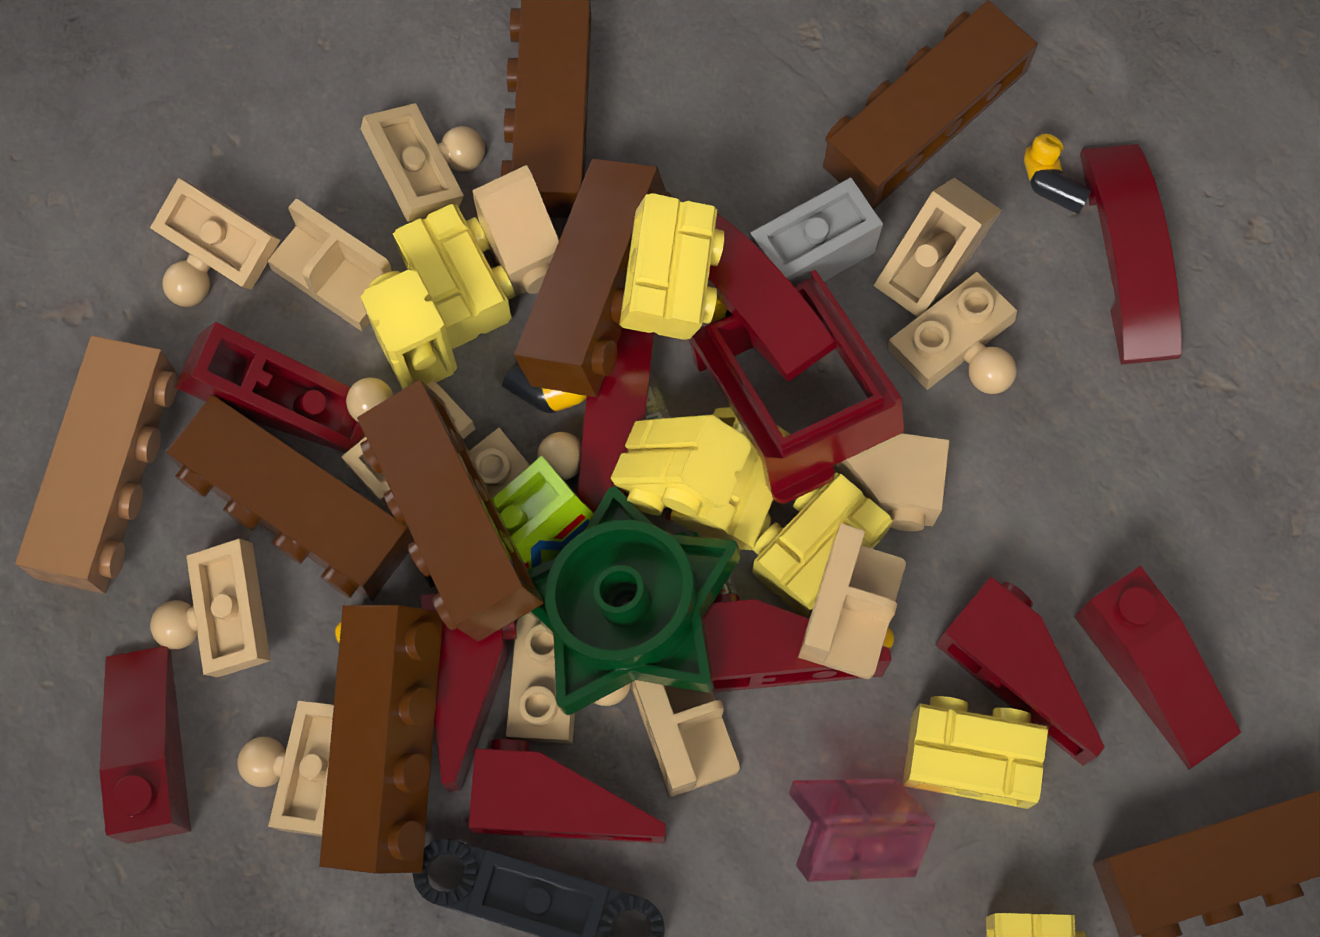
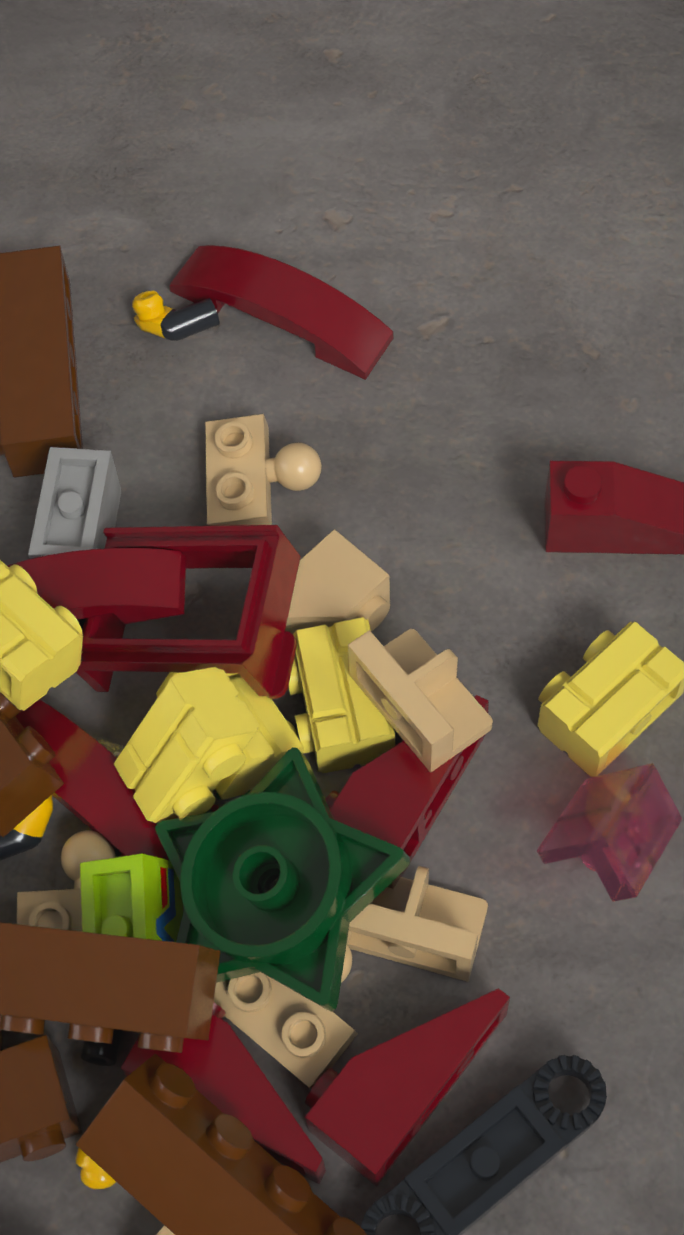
camera: 50 degrees left, 10 degrees down
(937, 246) = (161, 436): tan slope -> none
(1016, 659) = (558, 611): dark red slope -> none

